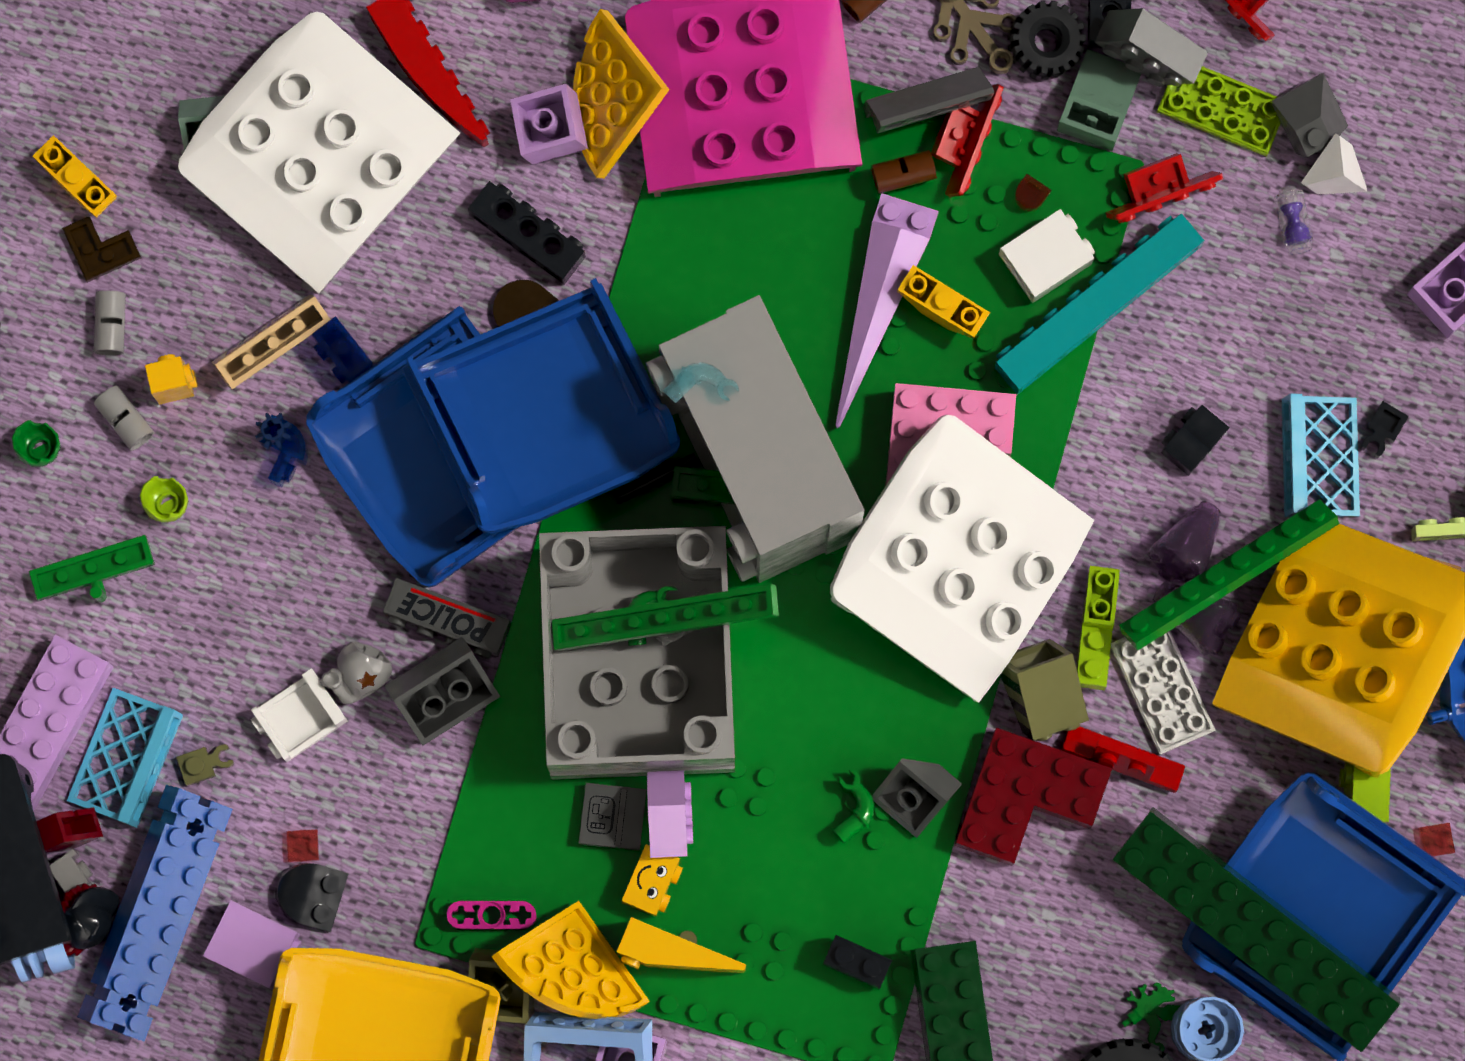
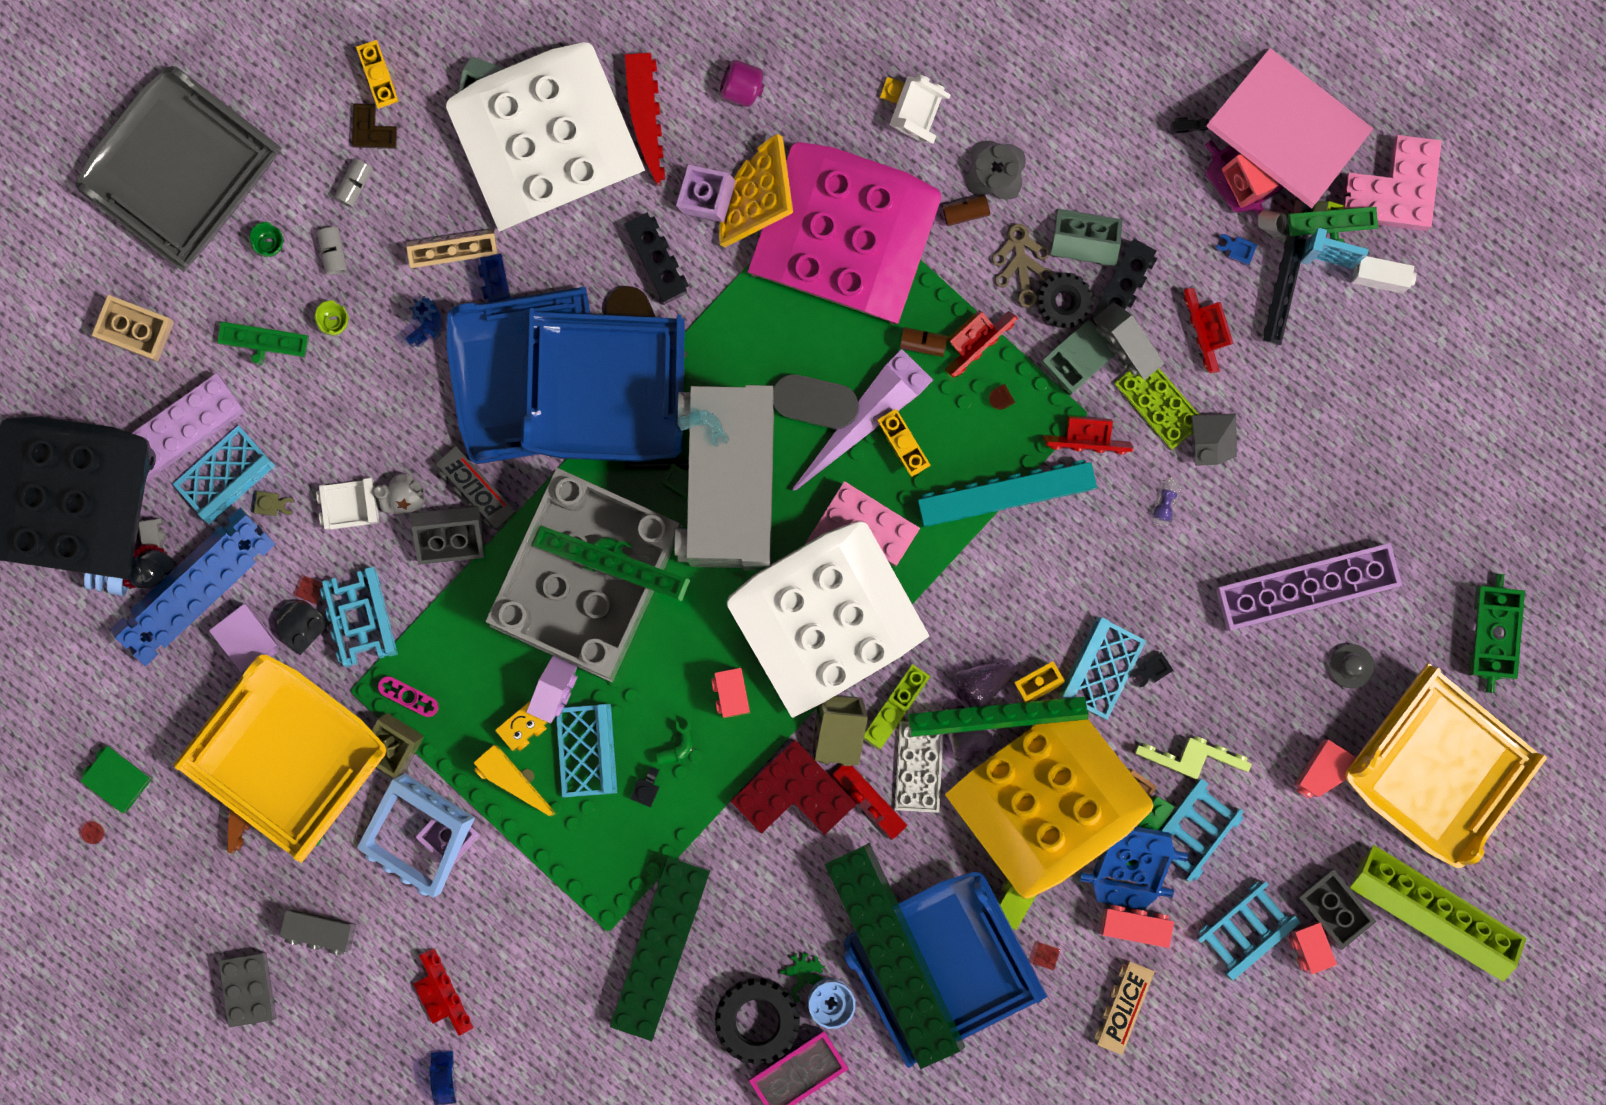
camera: 25 degrees right, 5 degrees up
(69, 829) = (164, 505): dark red piece -> none
(171, 379) = (373, 241): yellow brick -> none
(398, 832) = (375, 613): none -> medium azure fence
(572, 968) = (441, 757): yellow plate -> none
(612, 816) = (518, 672): dark grey tile -> none
(768, 857) = (605, 751): none -> medium azure fence
(816, 305) = (815, 401): none -> dark grey tile
(843, 884) = (646, 790): none -> black plate
(857, 962) = (627, 846): black brick -> none
(889, 709) = (731, 693): none -> coral brick
(915, 793) = (721, 756): dark grey slope -> none
(928, 99) = (963, 302): dark grey slope -> none
(1047, 255) = (990, 445): white brick -> none
(1194, 439) = (1024, 615): black brick -> none
(1256, 510) = (1039, 682): none -> yellow brick
(1336, 170) = (1211, 482): white slope -> none

